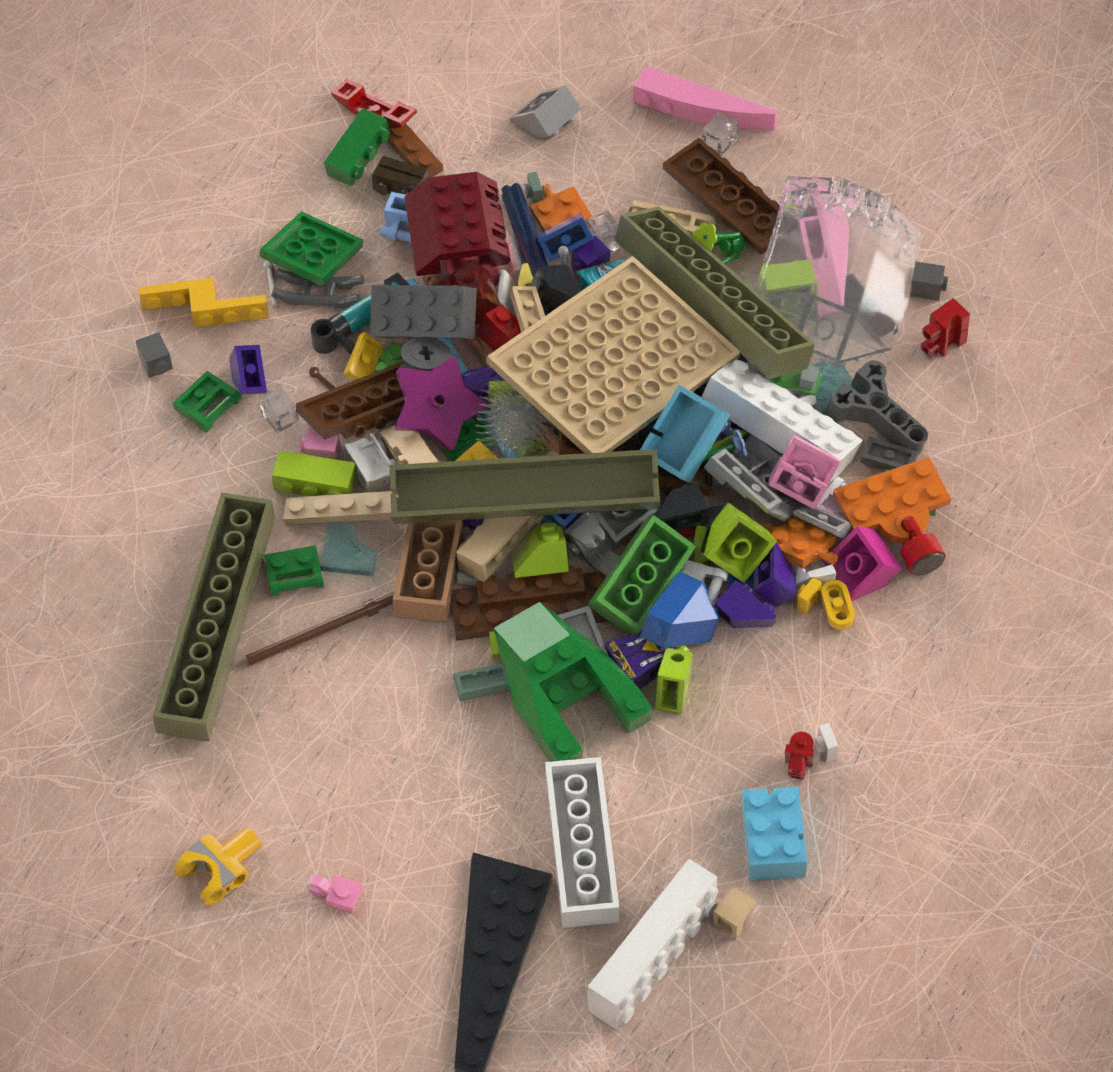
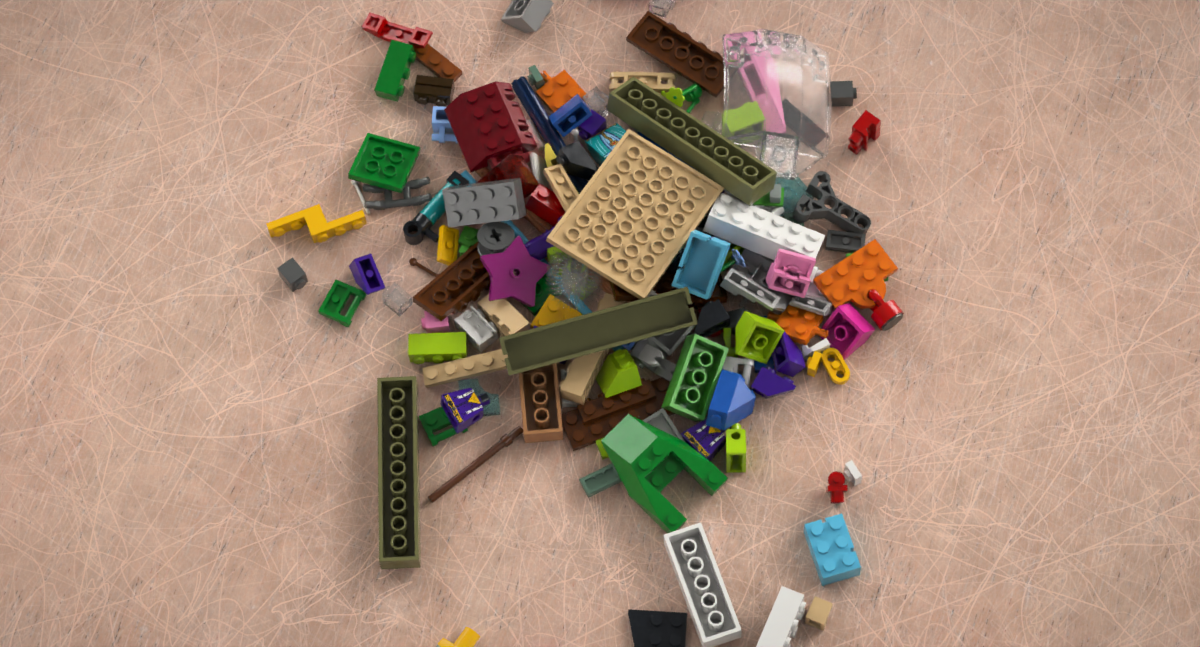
camera: 10 degrees left, 10 degrees up
(324, 553) = (463, 407): none -> dark purple torso

